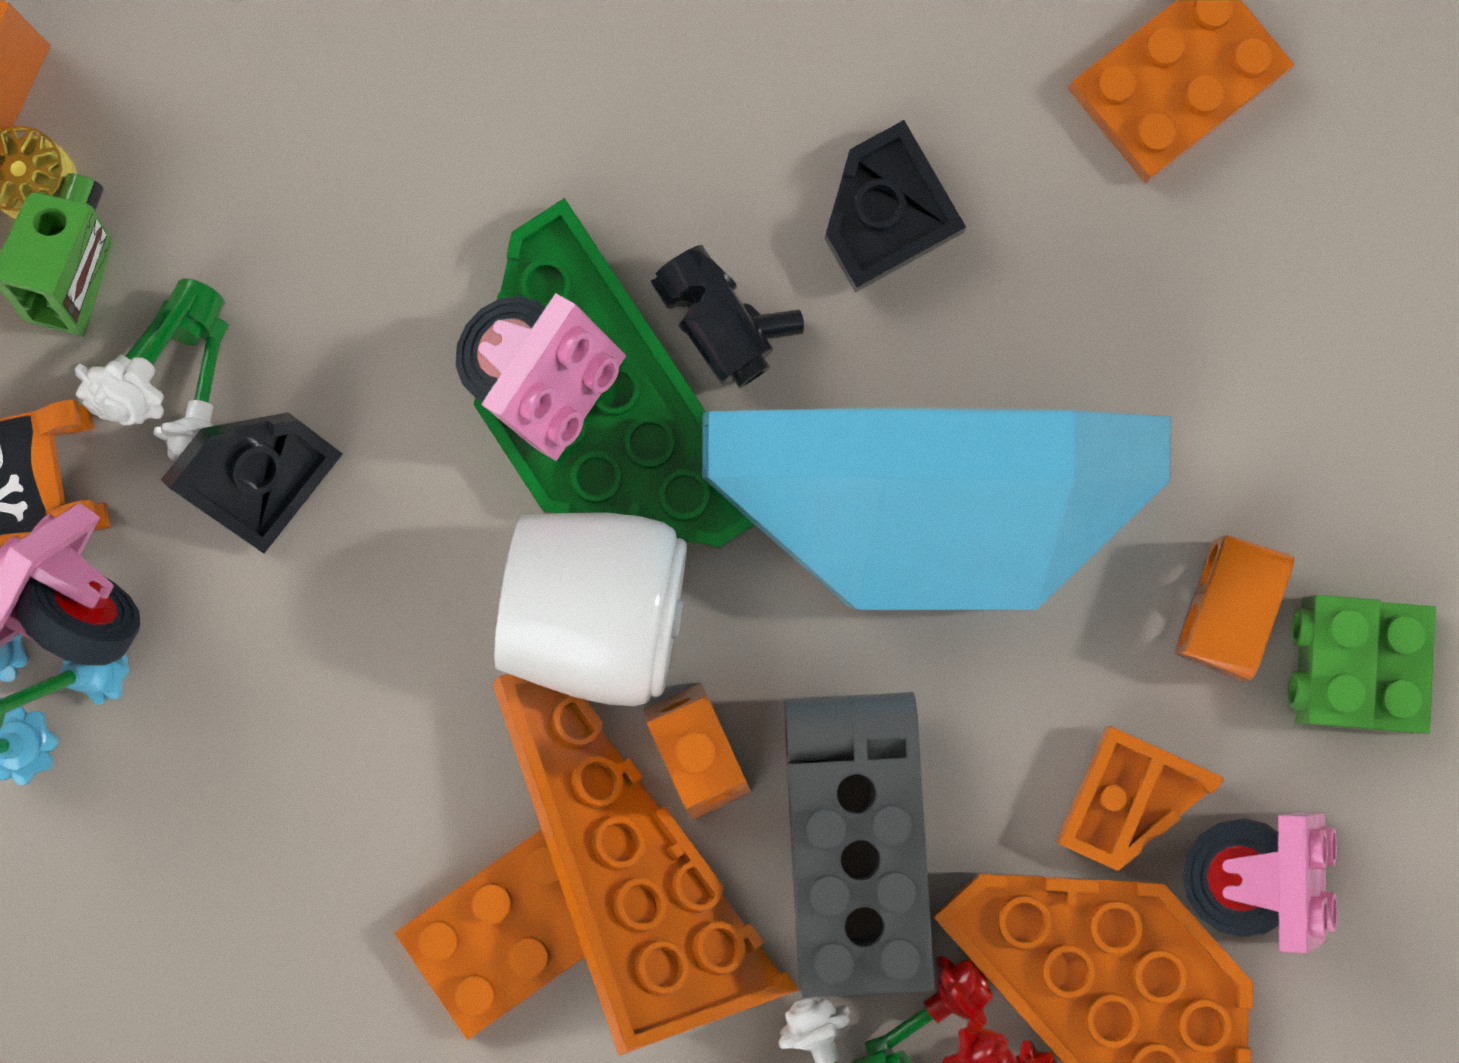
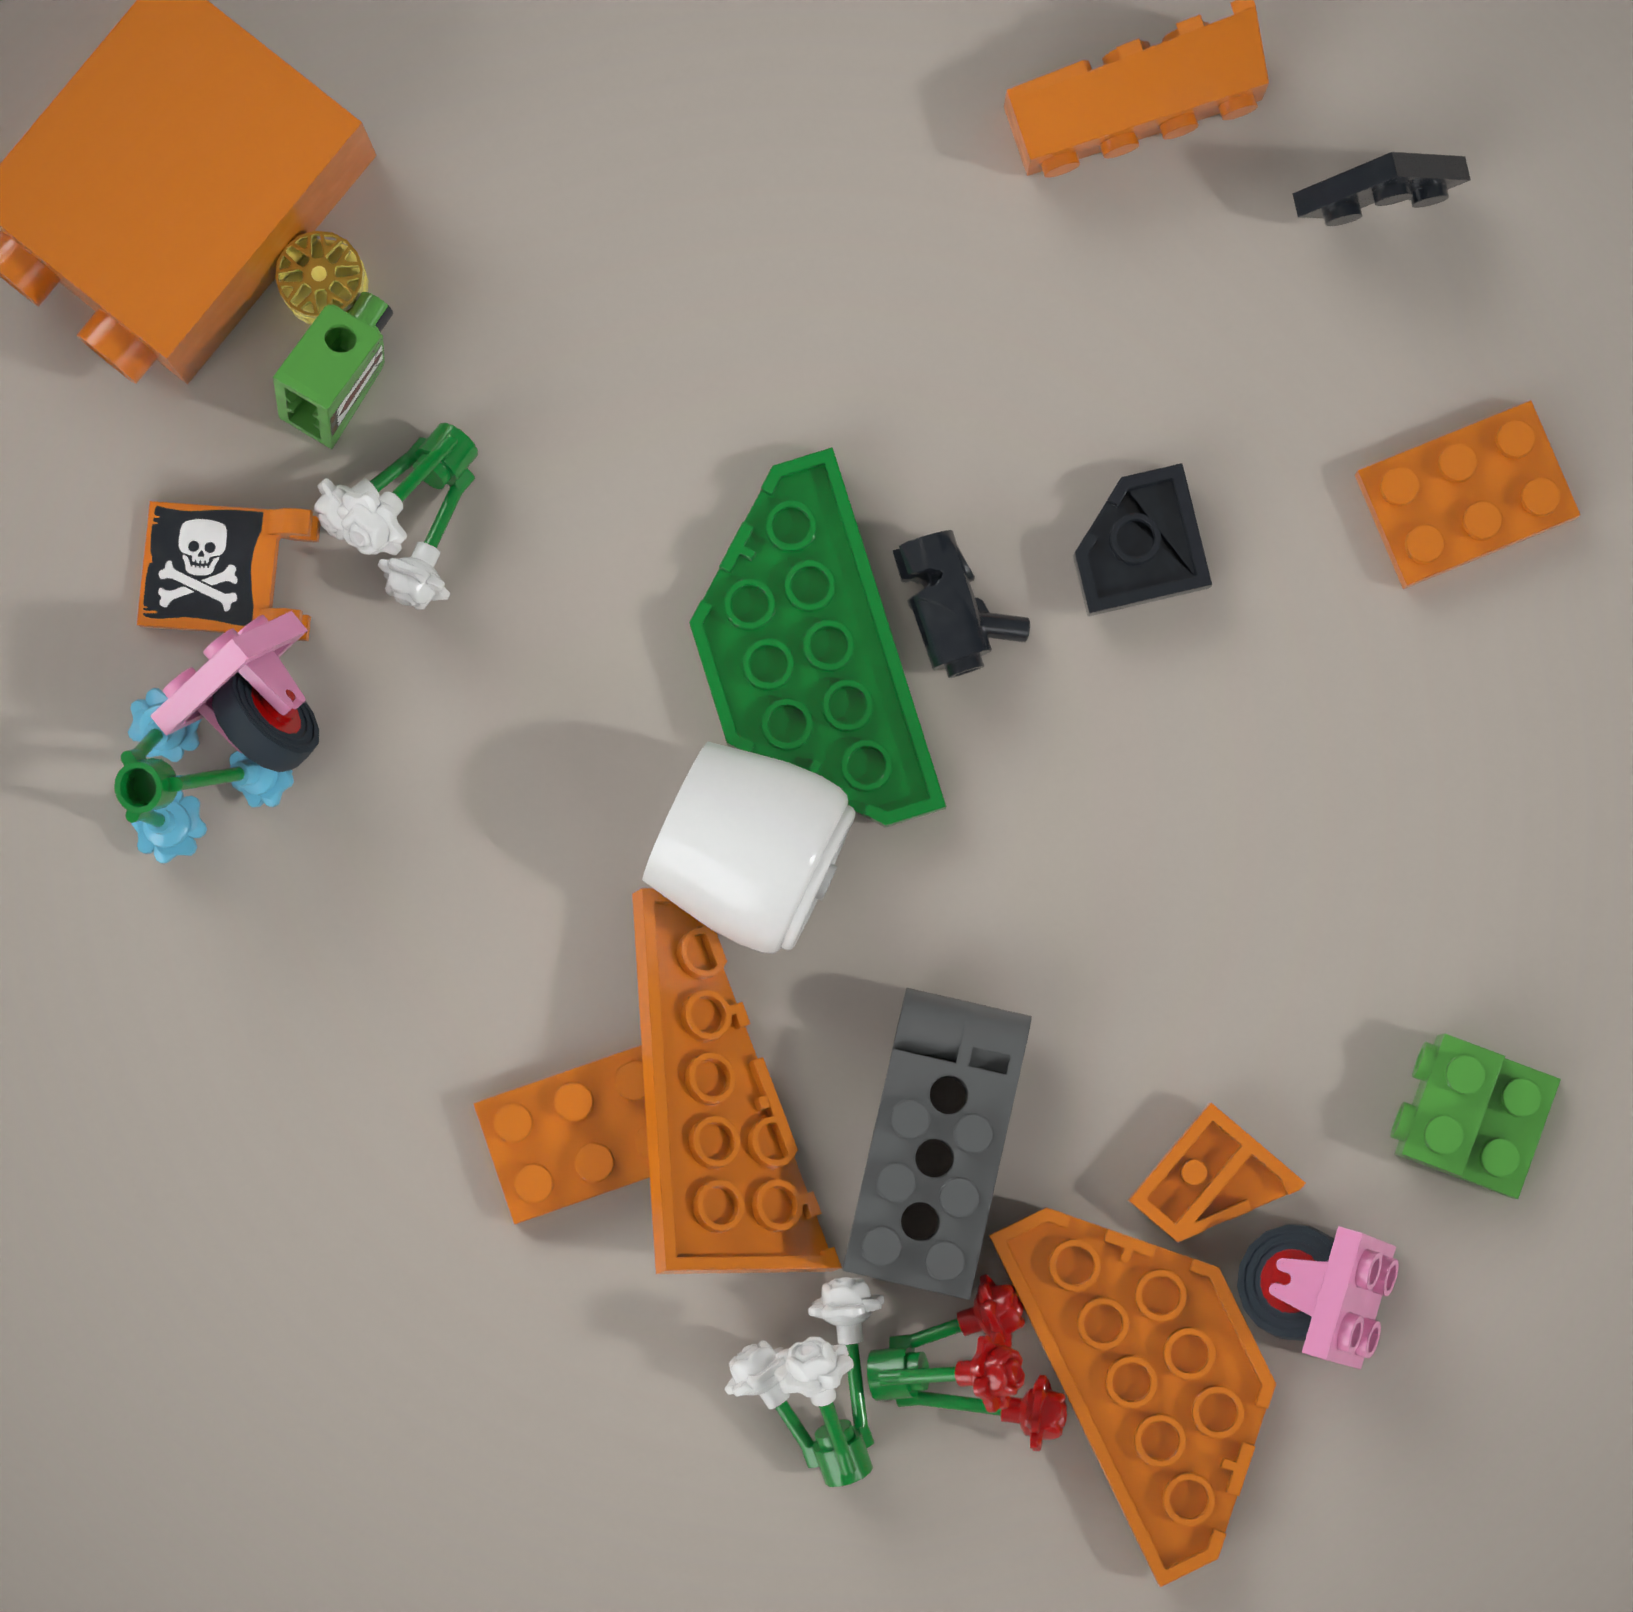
camera: 20 degrees right, 0 degrees up
(252, 474) = (462, 629): black plate -> none
(537, 367) = (760, 605): bright pink plate -> none
(696, 751) = (809, 1014): orange torso -> none
(937, 499) = (1106, 841): medium azure panel -> none
(1235, 607) = (1364, 1023): orange piece -> none

